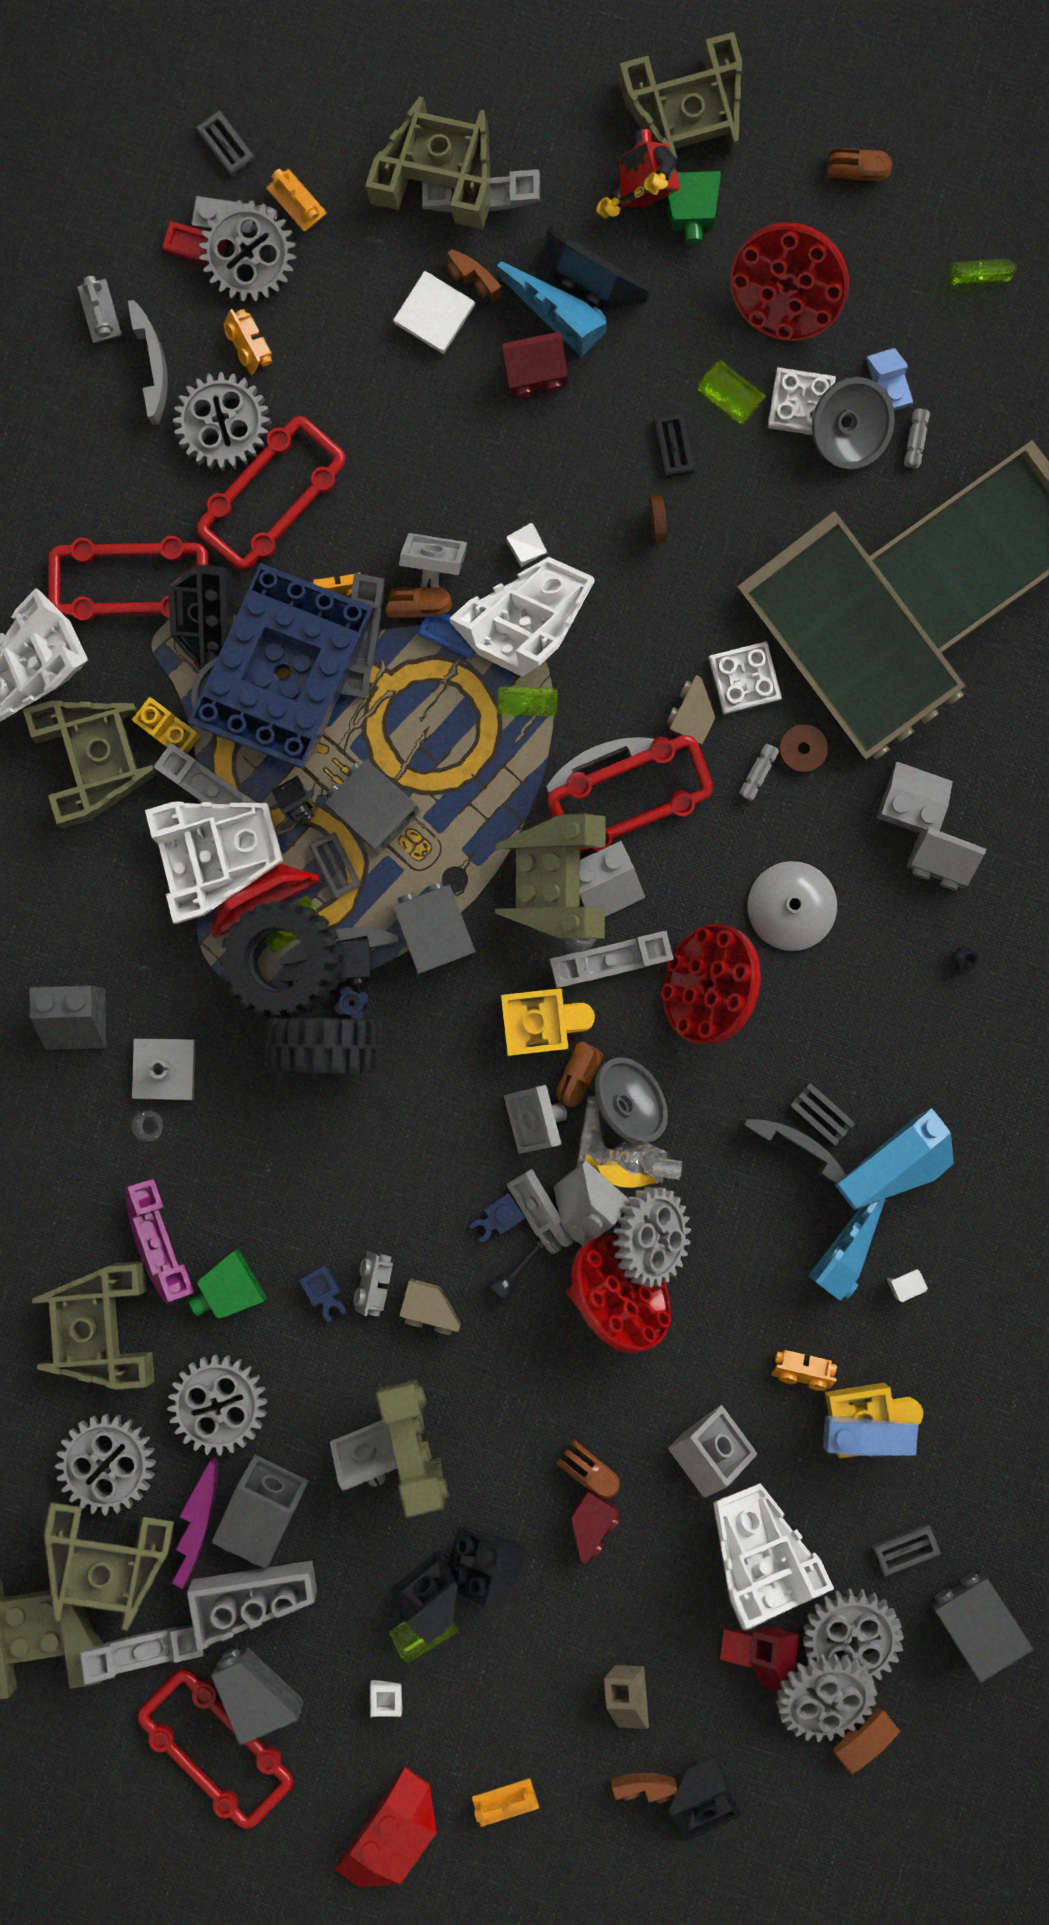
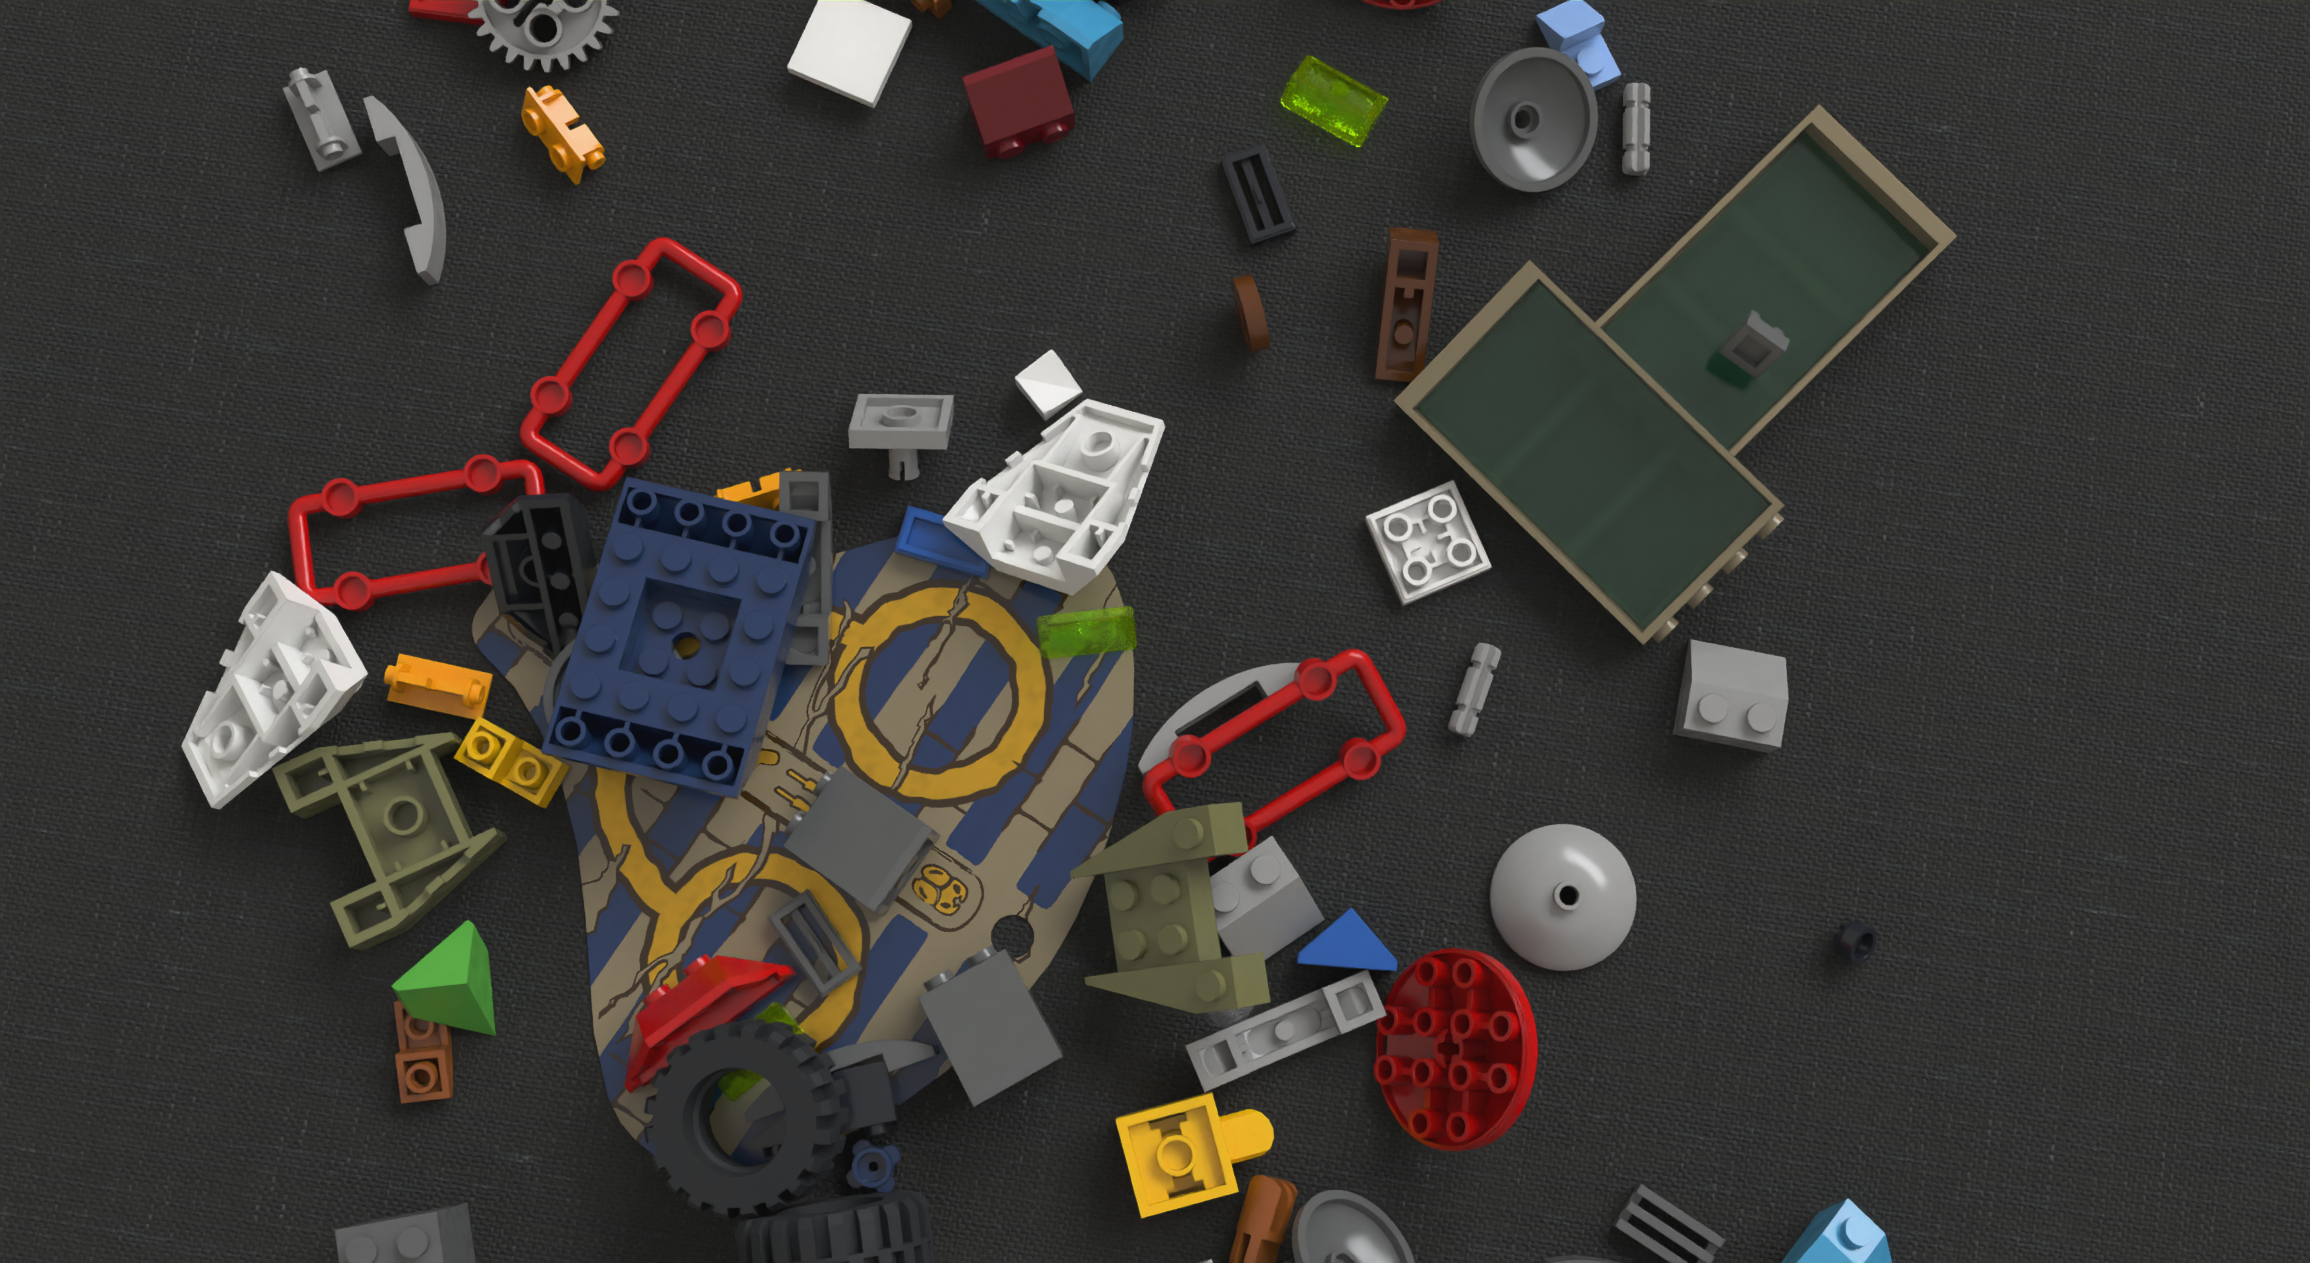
camera: 10 degrees left, 5 degrees down
(92, 892) = (423, 1059): none -> dark orange slope
(113, 856) = (452, 984): none -> bright green slope
(127, 675) = (438, 686): none -> light orange hinge
(196, 428) = (499, 281): light grey gear -> none
(197, 778) = (597, 851): light grey slope -> none
(212, 851) = (609, 955): white wedge -> none
(295, 801) = (734, 851): black slope -> none
(418, 602) = (889, 501): dark orange arm -> none
(656, 914) = (1347, 945): none -> blue slope
(695, 713) = (1358, 611): dark tan slope -> none
(755, 526) = (1406, 303): none -> reddish brown slope
(796, 398) = (1438, 97): white tile -> none
(805, 735) = (1560, 635): reddish brown piece -> none
(945, 858) = (1797, 785): light grey slope -> none
(965, 585) = (1754, 345): none -> dark grey tile

